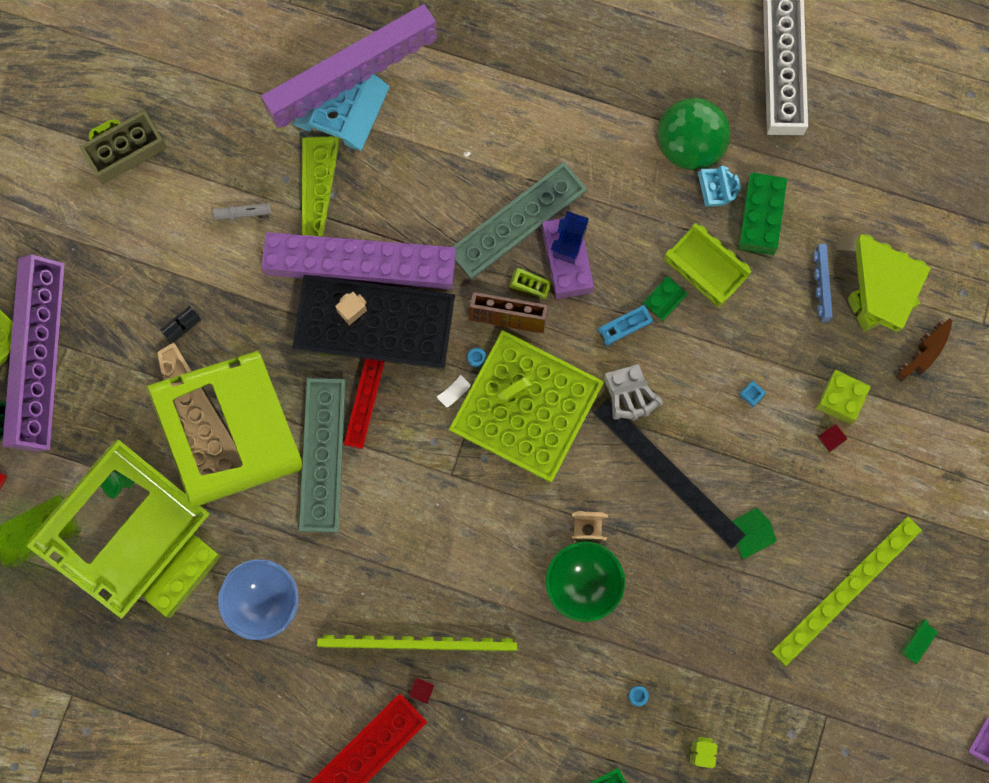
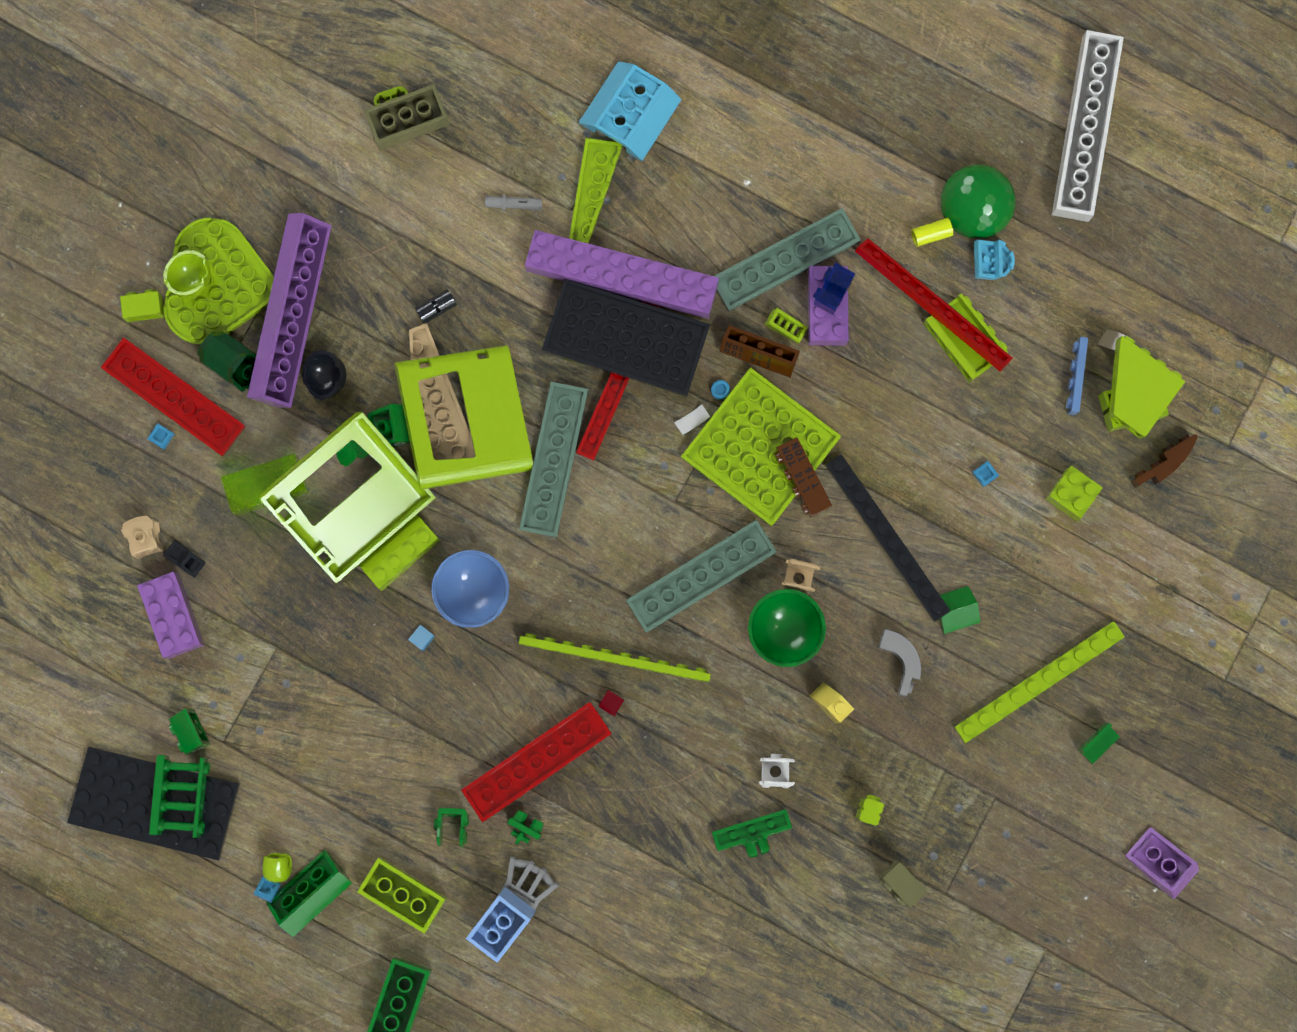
camera: 10 degrees right, 5 degrees up
(78, 410) = (324, 374): none -> black cylinder
(153, 448) = (391, 424): none -> green slope
(218, 658) = (421, 638): none -> dark azure slope
(350, 66) = (646, 76): medium lavender brick -> none
(351, 307) = (606, 319): tan brick -> none
(489, 545) = (701, 576): none -> sand green plate
(514, 390) = (751, 429): lime beam -> none
(574, 428) = (803, 477): none -> reddish brown brick
(609, 738) = (780, 781): none -> white piece
(625, 325) = (873, 383): dark azure plate -> none
(630, 381) = (867, 440): light grey plate -> none
(638, 696) = (817, 745): dark azure tile -> none
(644, 649) = (831, 703): none -> light yellow slope
(655, 170) = (932, 232): none -> neon yellow pin
(665, 298) = (917, 364): green plate -> none
(671, 238) = (934, 305): none -> red plate
(713, 590) = (908, 656): none -> light grey arch
(762, 213) = (1030, 295): green brick -> none
(832, 437) = (1055, 531): dark red slope -> none

